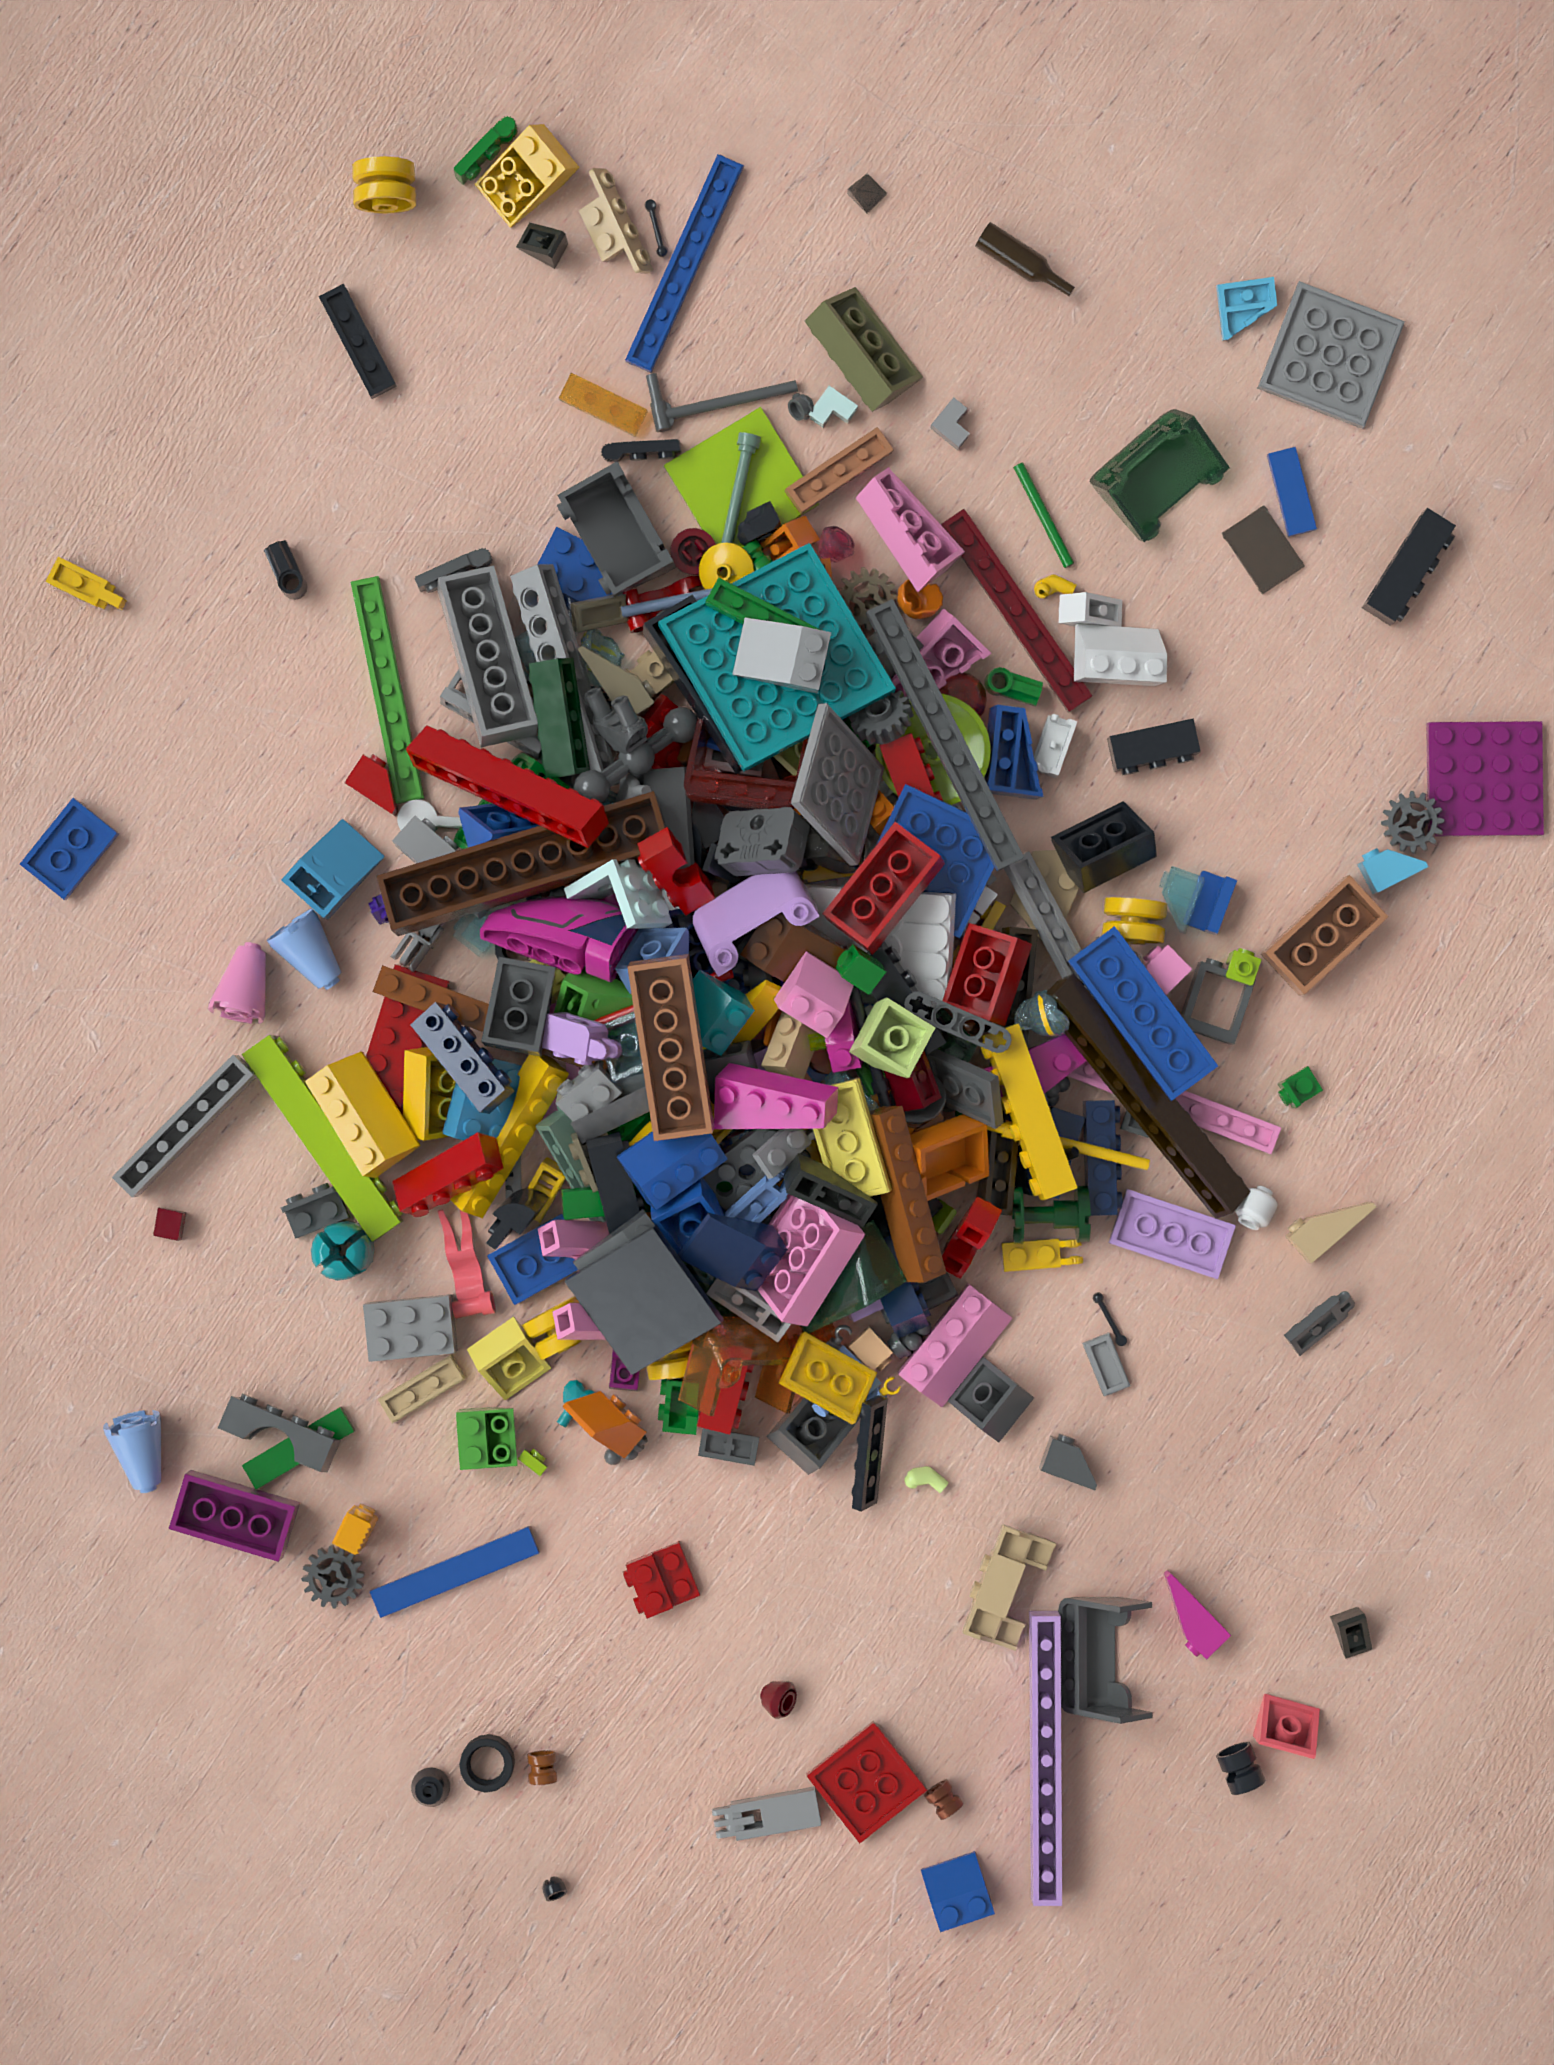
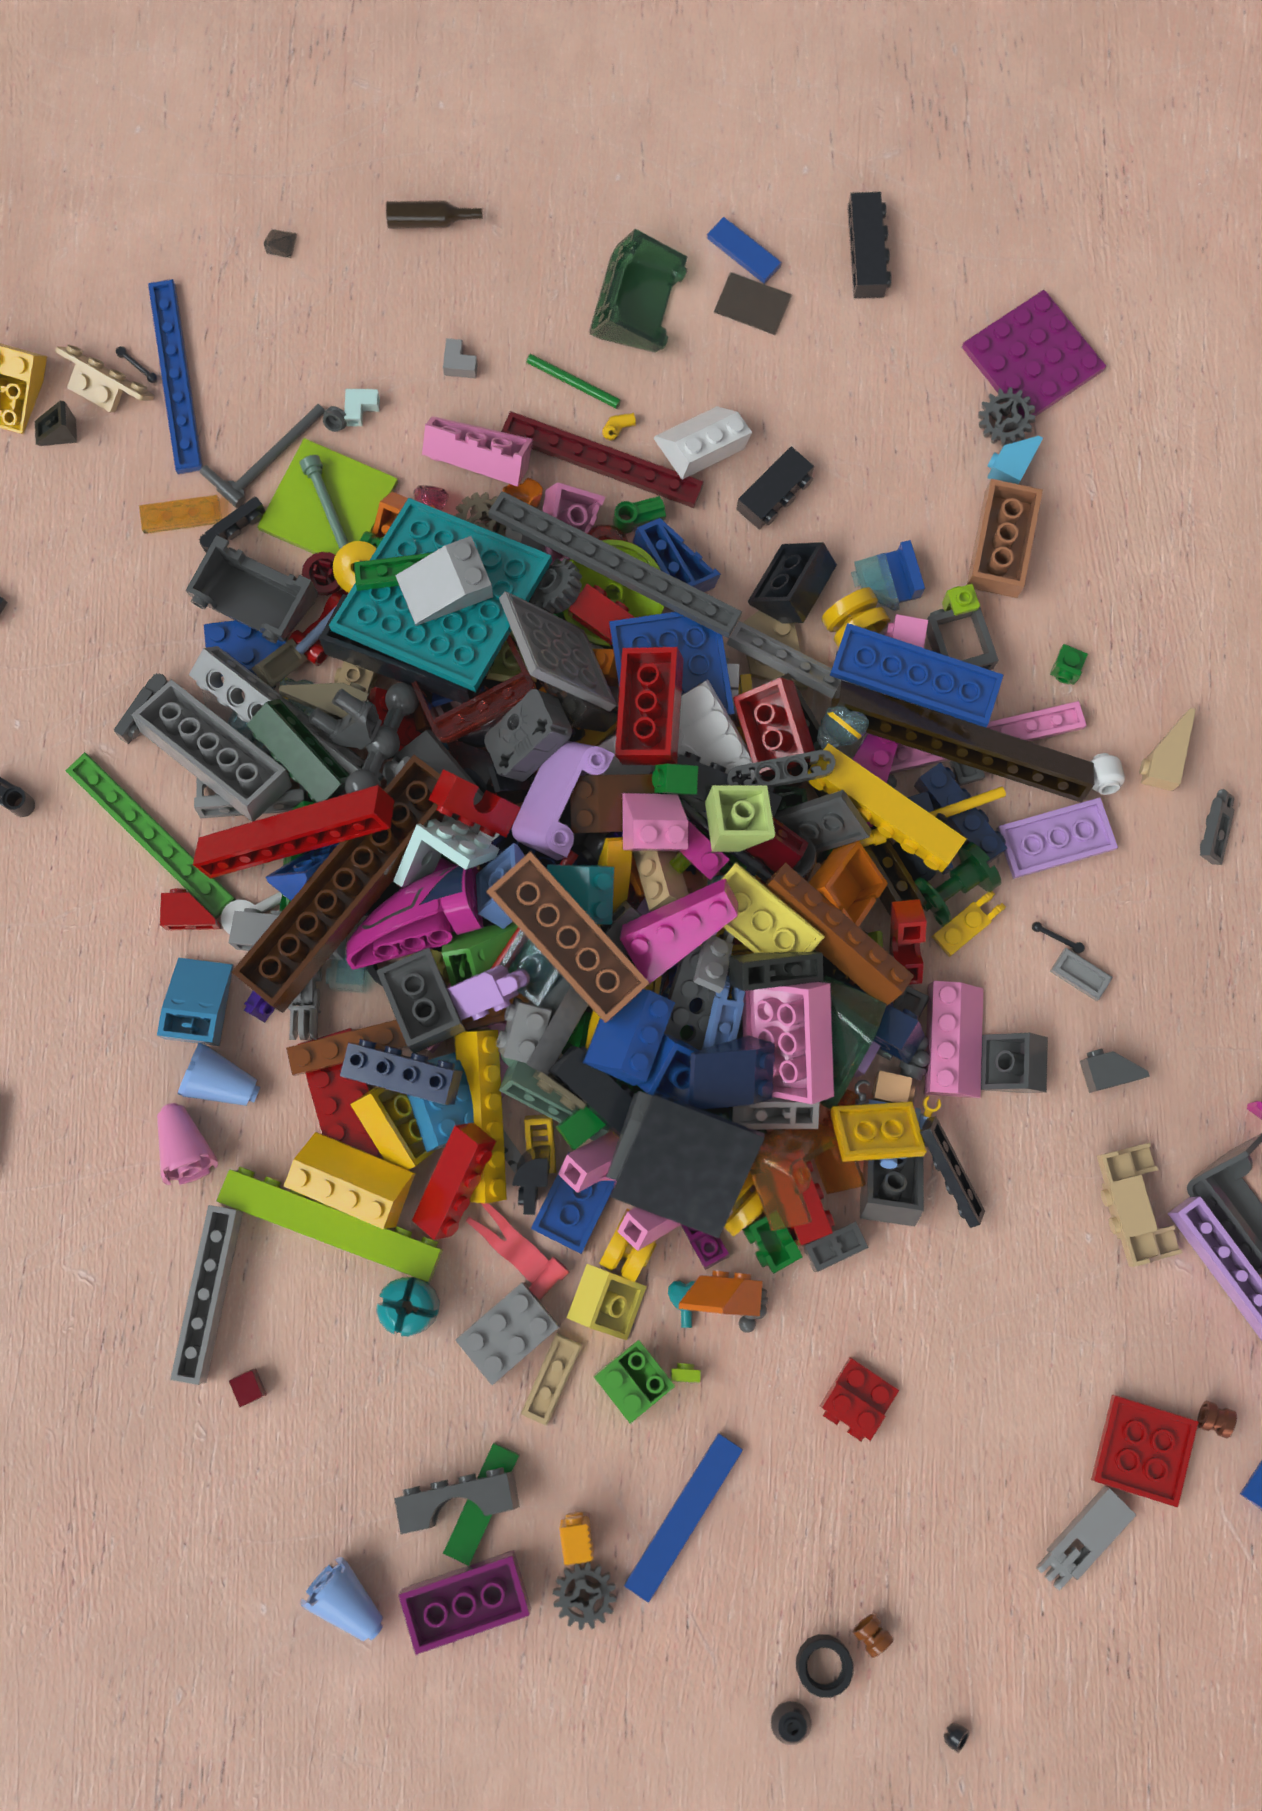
camera: 45 degrees left, 10 degrees down
(314, 1211) = (362, 1292): dark grey bracket -> none
(758, 524) = (360, 517): black rock -> none
(779, 1698) = (1024, 1431): dark red cone -> none
(839, 470) = (395, 444): nougat plate -> none
(863, 348) = (352, 349): olive slope -> none
(923, 1476) = (1007, 1161): yellowish green arm -> none
(1053, 744) = (700, 534): white hinge -> none
(1090, 609) = (654, 420): white slope -> none
(1244, 303) = (614, 144): medium azure wing -> none
(1331, 355) = (702, 142): light grey tile -> none

